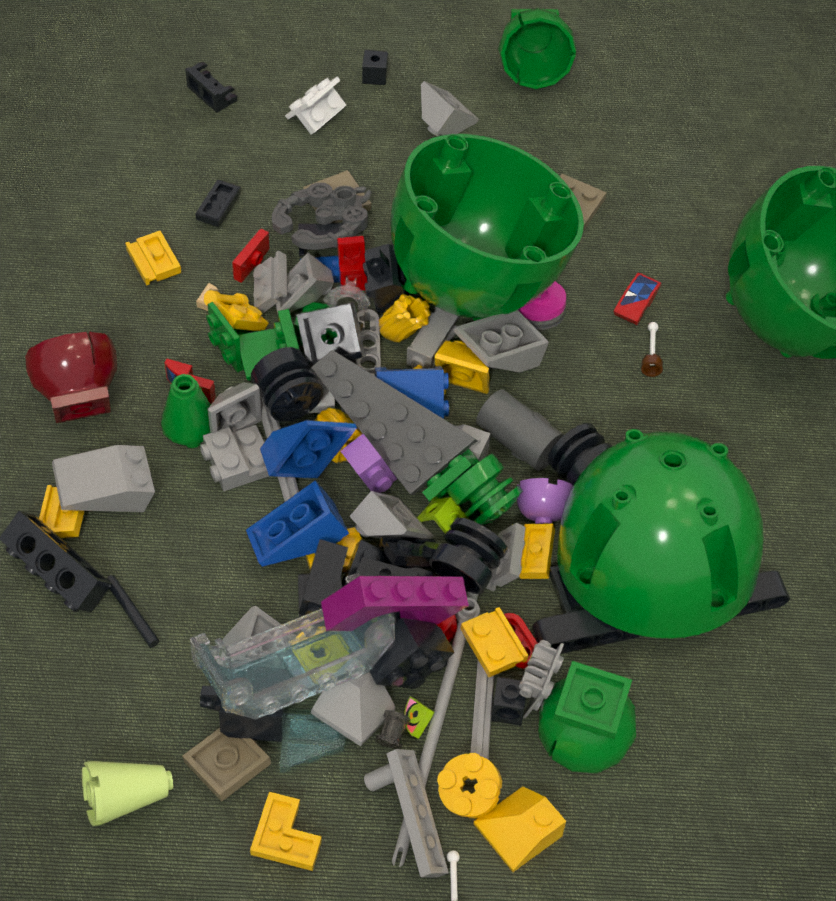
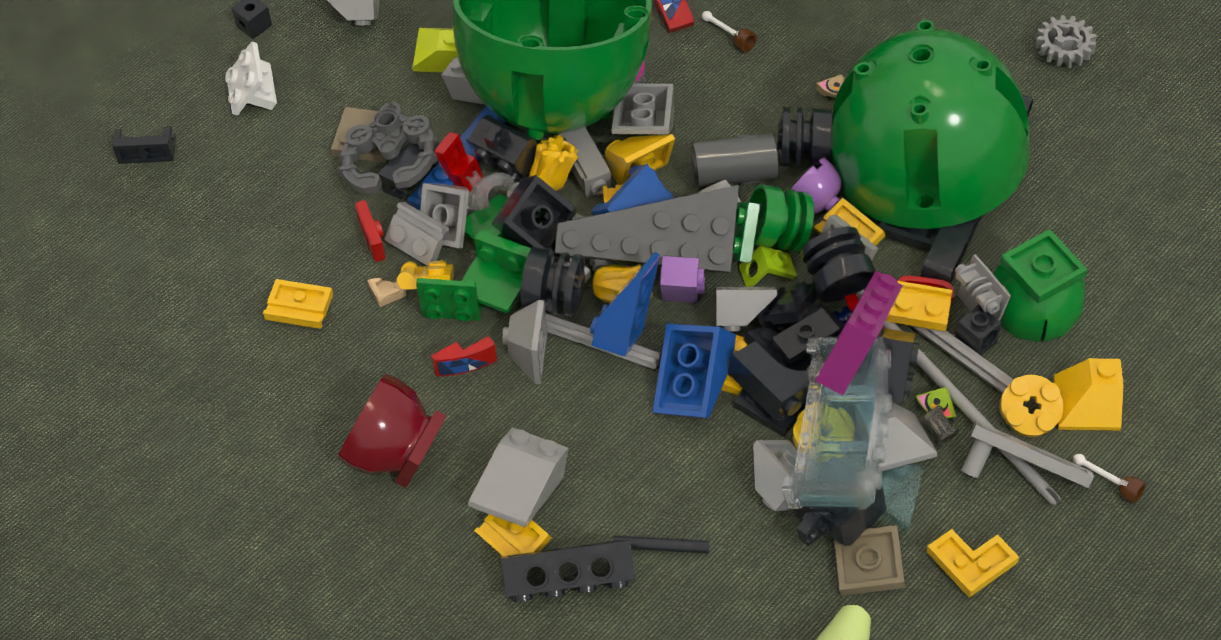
camera: 45 degrees left, 0 degrees up
(185, 412) = (502, 377): green cone -> none
(218, 203) = (285, 220): black plate -> none
(234, 456) = (573, 372): light grey plate -> none

